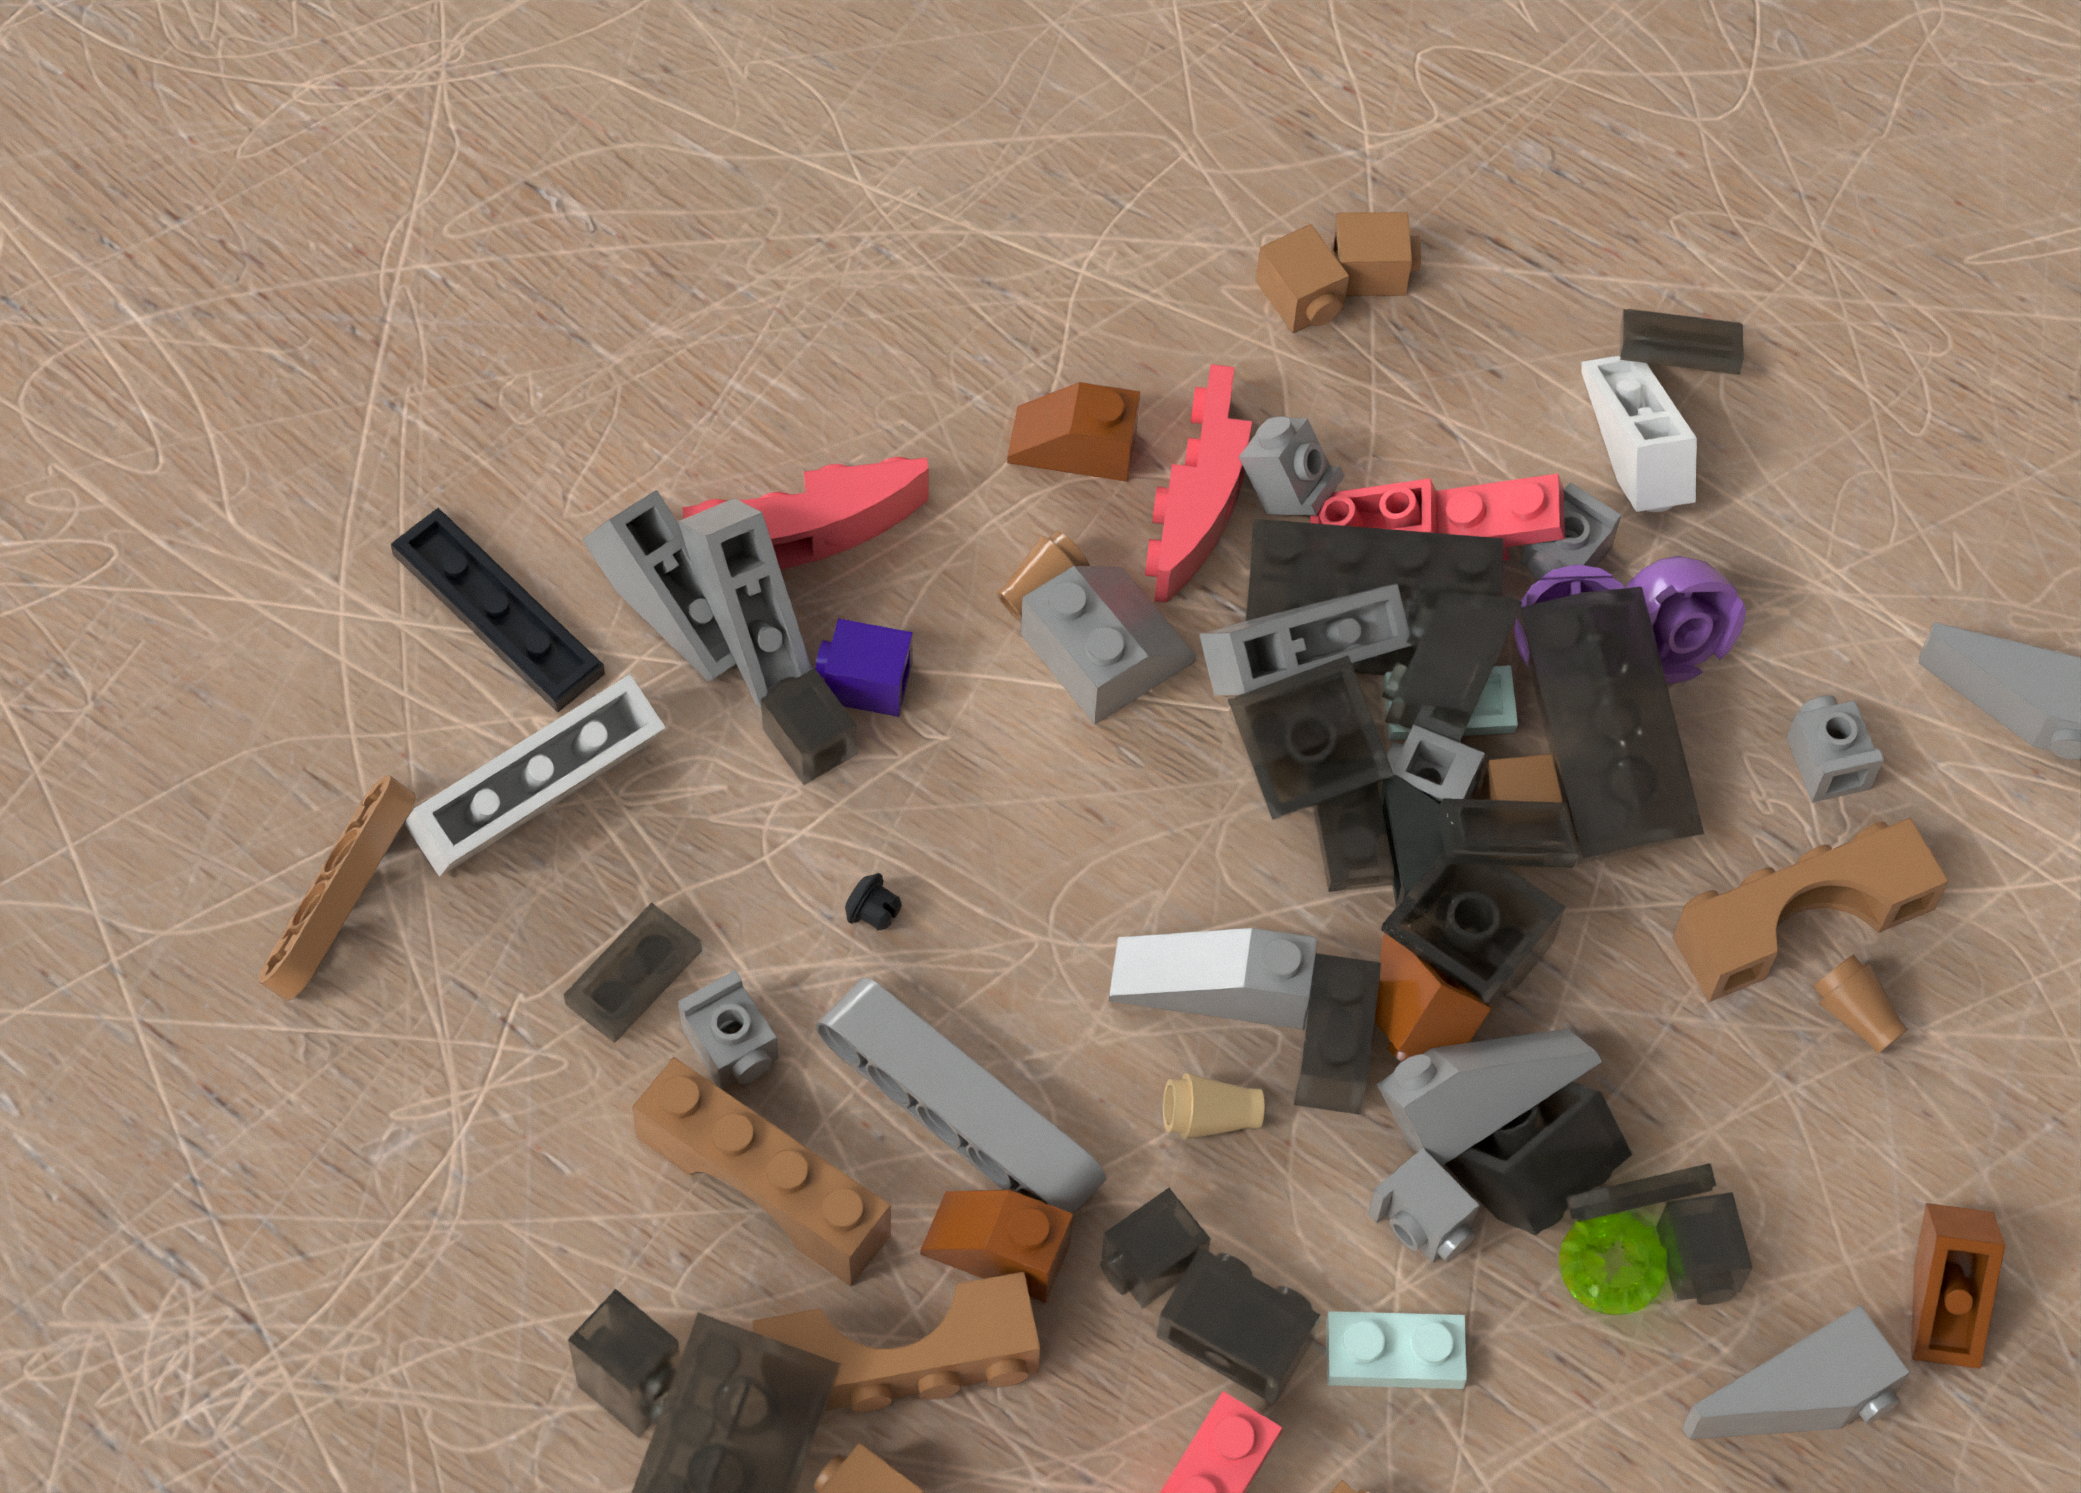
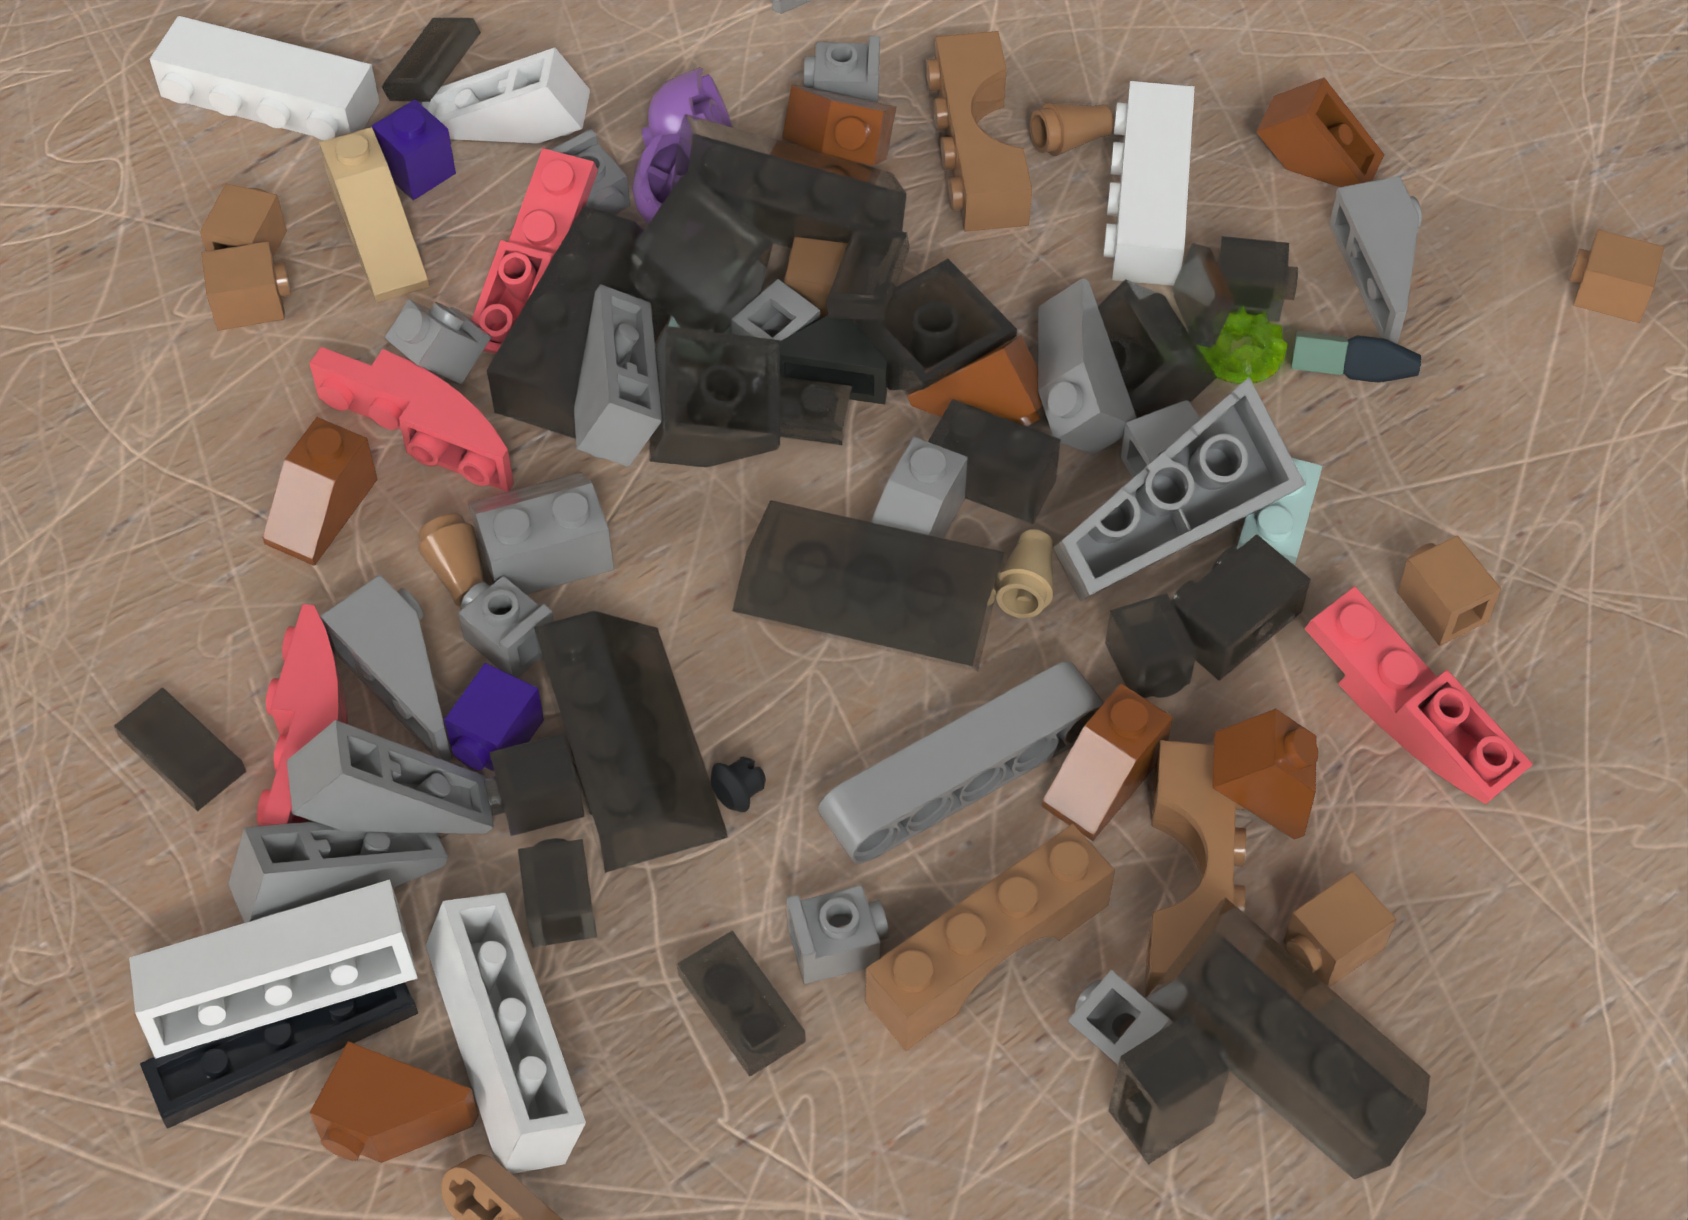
camera: 70 degrees left, 5 degrees down
(444, 705) = (387, 1107): none -> dark orange slope
(548, 573) = (271, 969): none -> white brick
(700, 779) = (557, 892): none -> clear smoke brick
(701, 1291) = (1106, 1007): none -> light grey brick
(763, 424) = (180, 749): none -> clear smoke tile
(888, 786) = (628, 738): none -> clear smoke slope
(909, 559) = (383, 645): none -> light grey slope
(980, 645) = (502, 623): none -> light grey brick
(1013, 1385) = (1268, 769): none -> dark orange slope
(1123, 952) = (870, 584): none -> clear smoke slope
(1347, 1235) = (1198, 485): none -> light grey wedge
(1442, 359) = (373, 214): none -> tan slope
(1538, 365) = (415, 149): none -> dark purple brick
(1577, 202) = (264, 79): none -> white brick
(1640, 1390) = (1357, 357): none -> piece
(1745, 765) = (839, 125): none -> dark orange slope
(1809, 1108) = (1152, 184): none -> white brick

